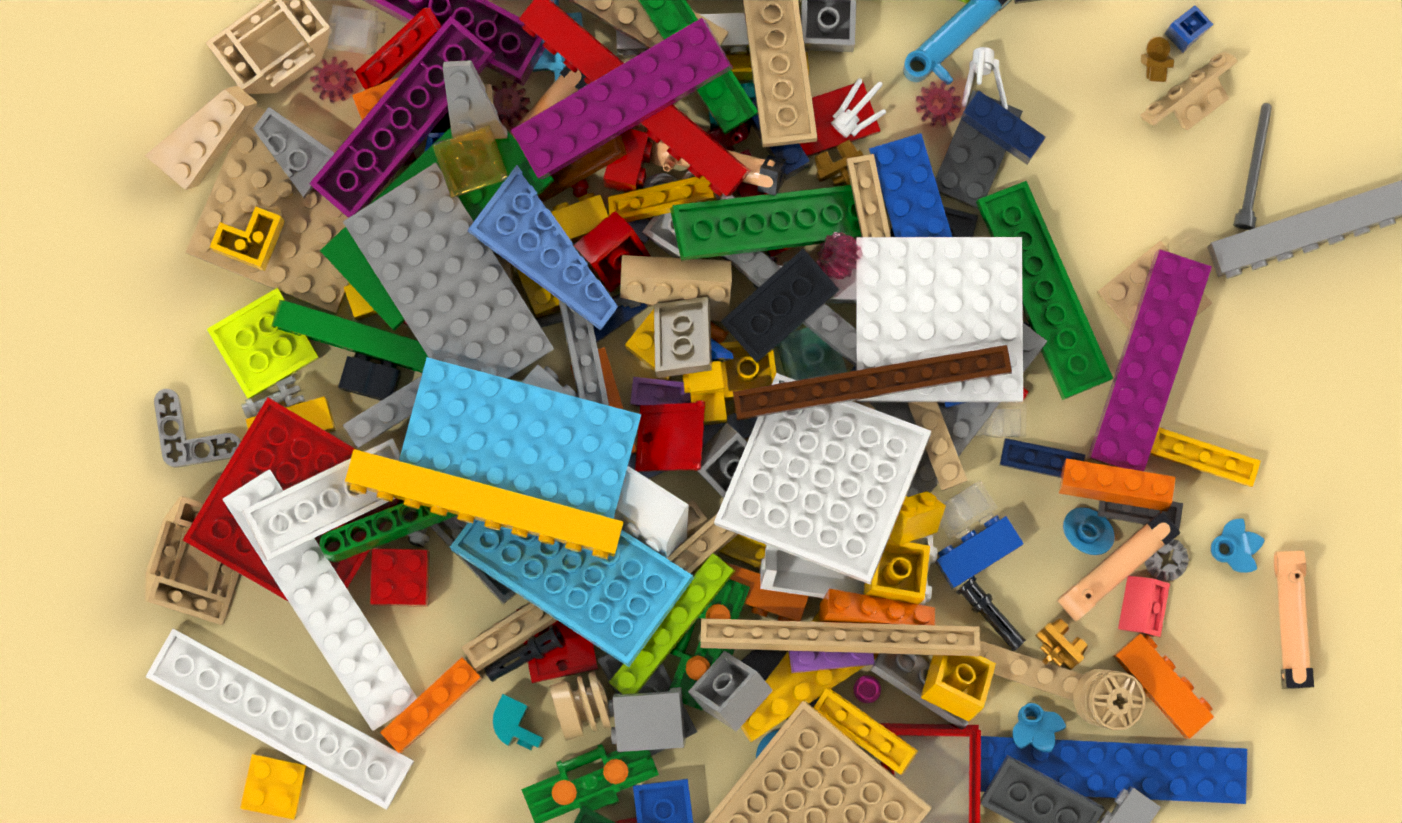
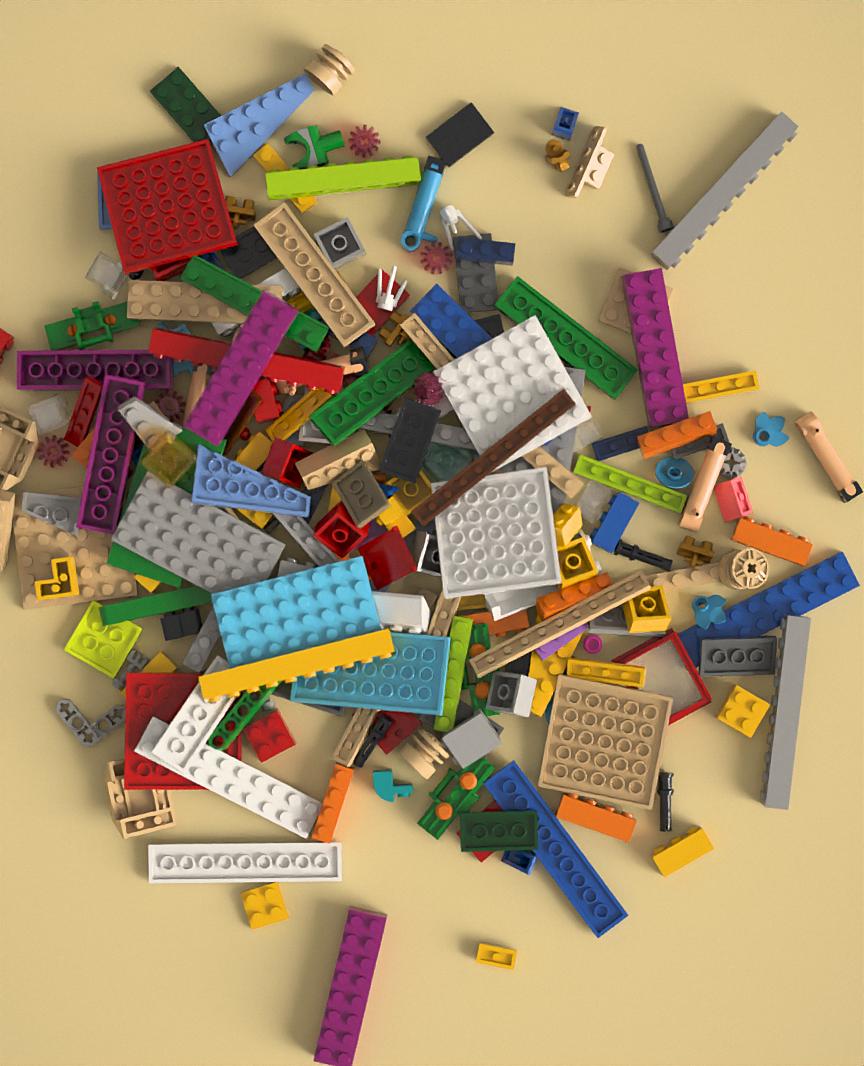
camera: 30 degrees left, 5 degrees up
(630, 369) = (339, 531): none -> red brick
(1025, 515) = (630, 484): none -> lime plate

